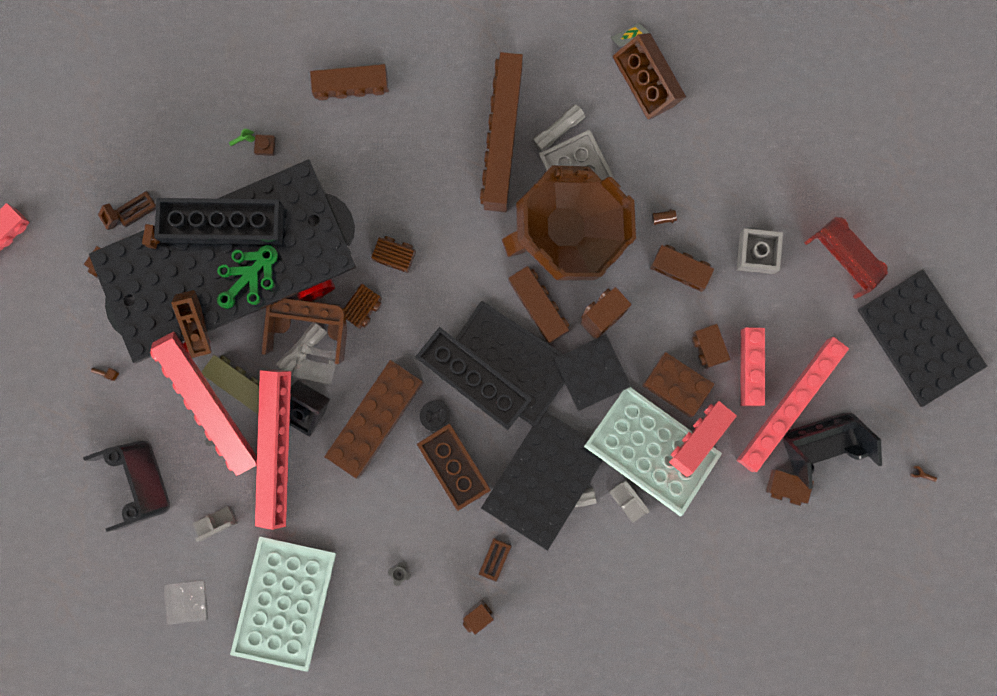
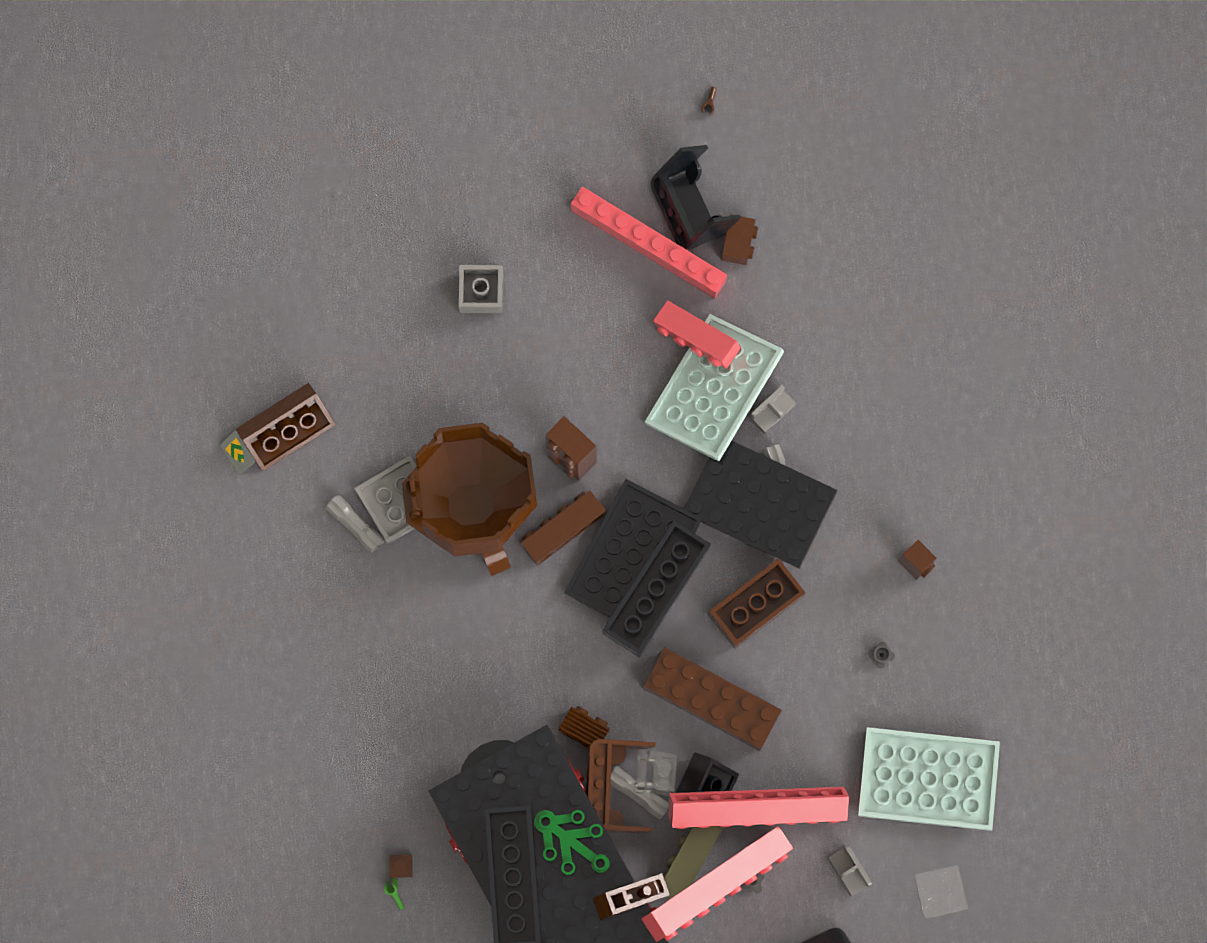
camera: 100 degrees left, 5 degrees down
(349, 82) = (317, 771): reddish brown brick -> none
(393, 254) = (520, 697): reddish brown brick -> none
(434, 406) = (699, 622): black gear -> none
(501, 544) = (834, 553): reddish brown tile -> none
(502, 135) = (367, 585): reddish brown brick -> none
(592, 372) = (635, 460): black plate -> none
(664, 217) = (449, 396): reddish brown pin -> none
(678, 385) = (639, 366): reddish brown brick -> none
(682, 268) = (506, 372): reddish brown brick -> none
(710, 346) = (592, 334): reddish brown brick -> none
(753, 367) = (611, 287): coral brick -> none
(851, 254) = (478, 192): clear red windscreen -> none
(922, 338) = (560, 110): black plate -> none

